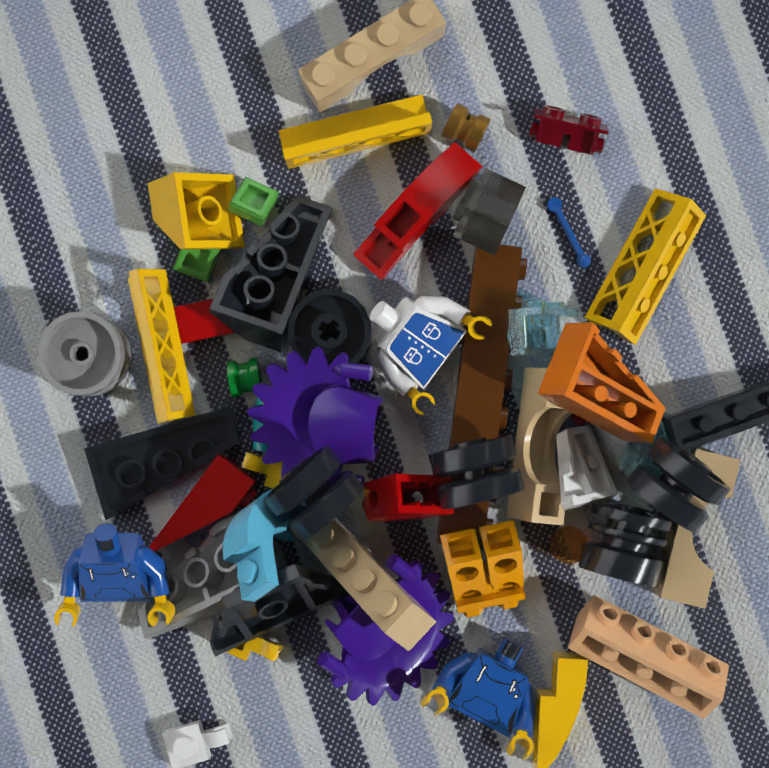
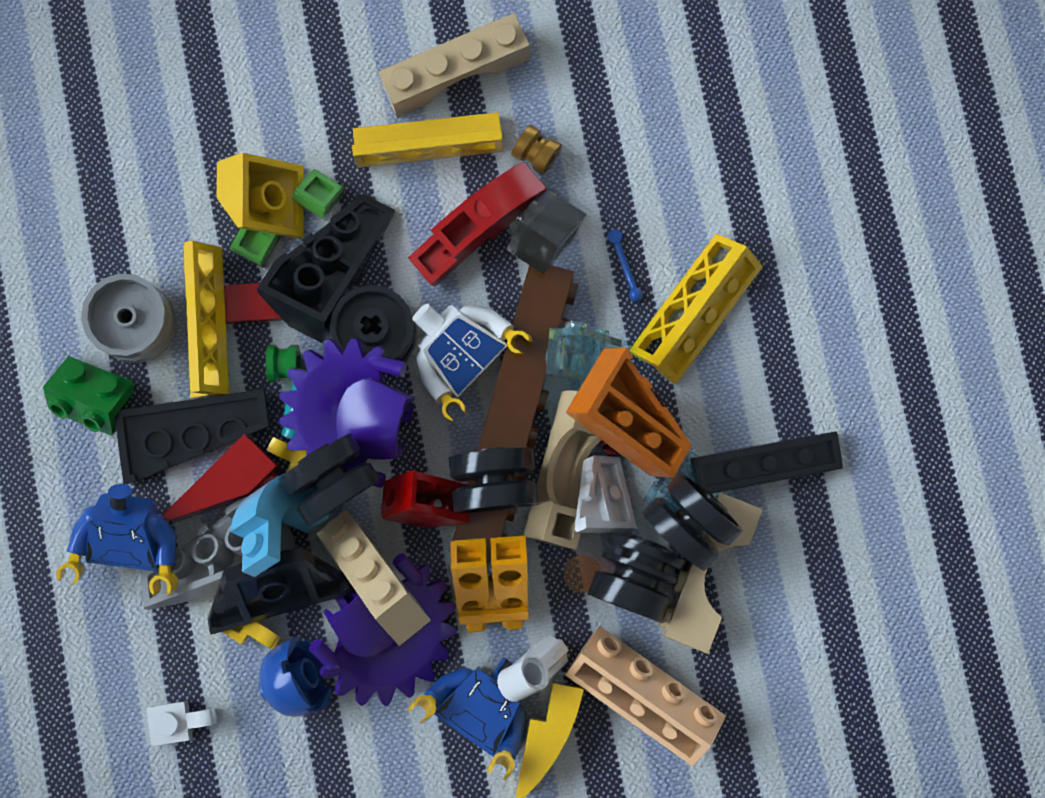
camera: 10 degrees right, 5 degrees down
(55, 435) = (87, 395): none -> green bracket
(302, 689) = (293, 679): none -> blue cylinder
(537, 647) = (533, 669): none -> white piece
(583, 130) = (625, 158): dark red hinge -> none

